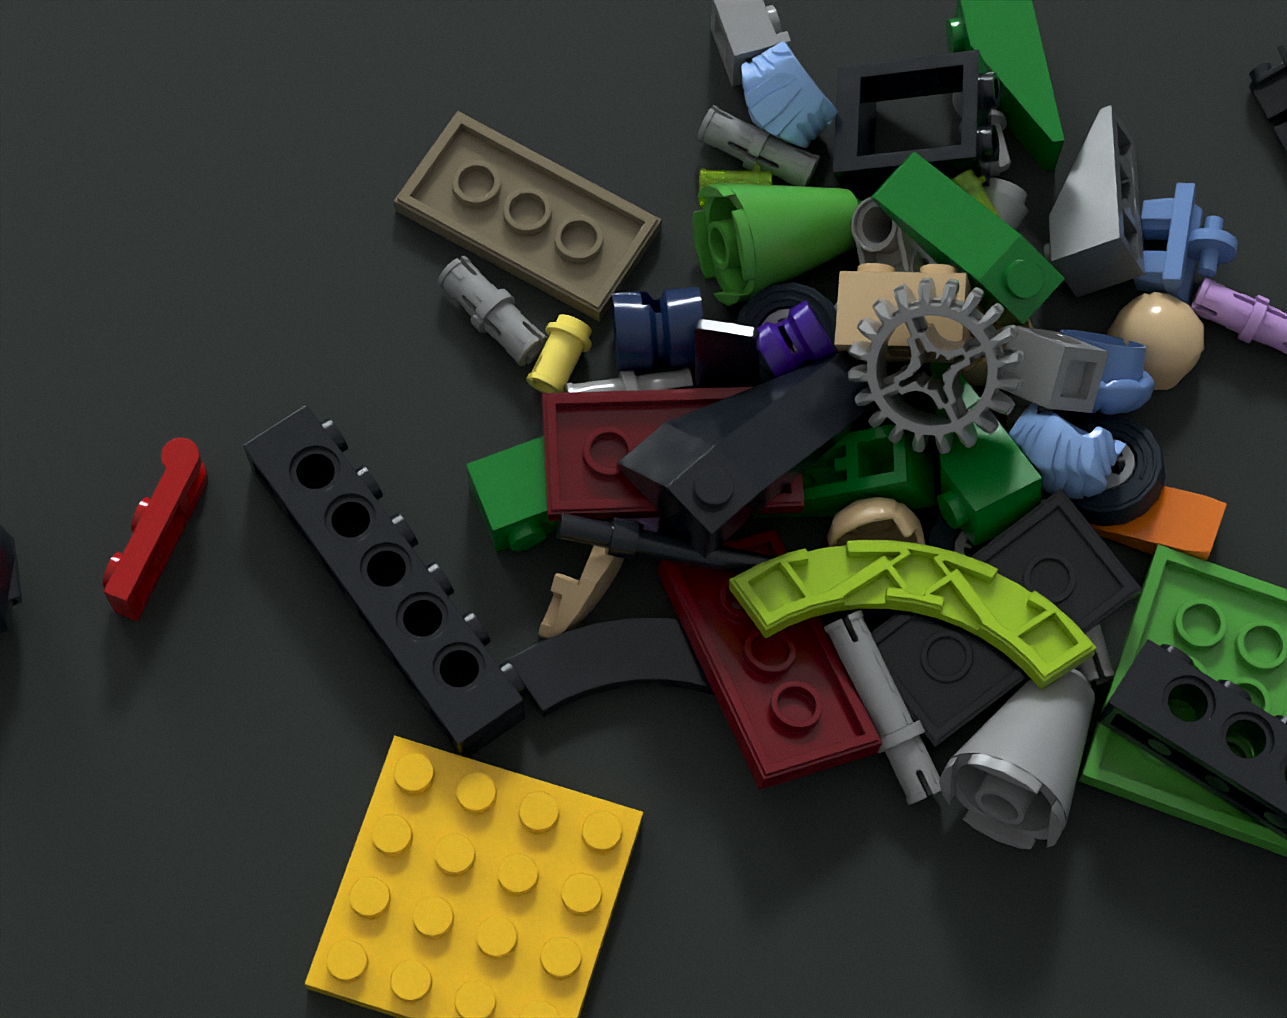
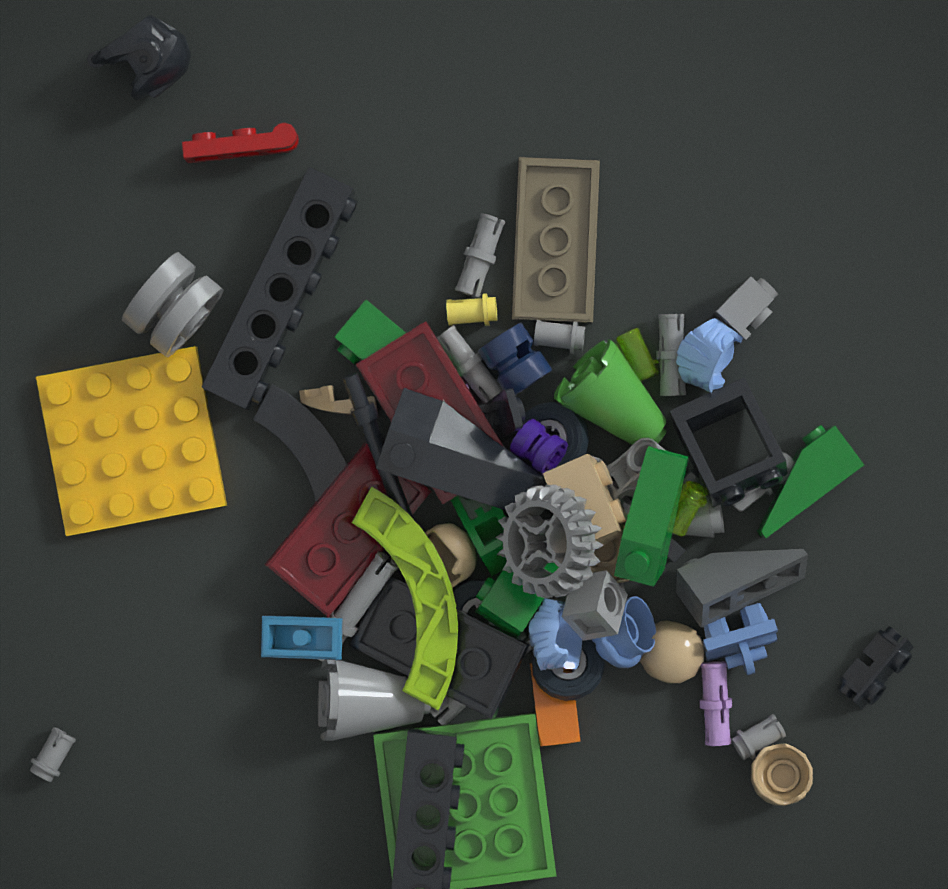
camera: 65 degrees right, 20 degrees up
(321, 719) = (172, 304): none -> light grey wheel
(658, 263) = (560, 335): none -> light grey pin
(892, 795) = (301, 637): none -> dark azure slope

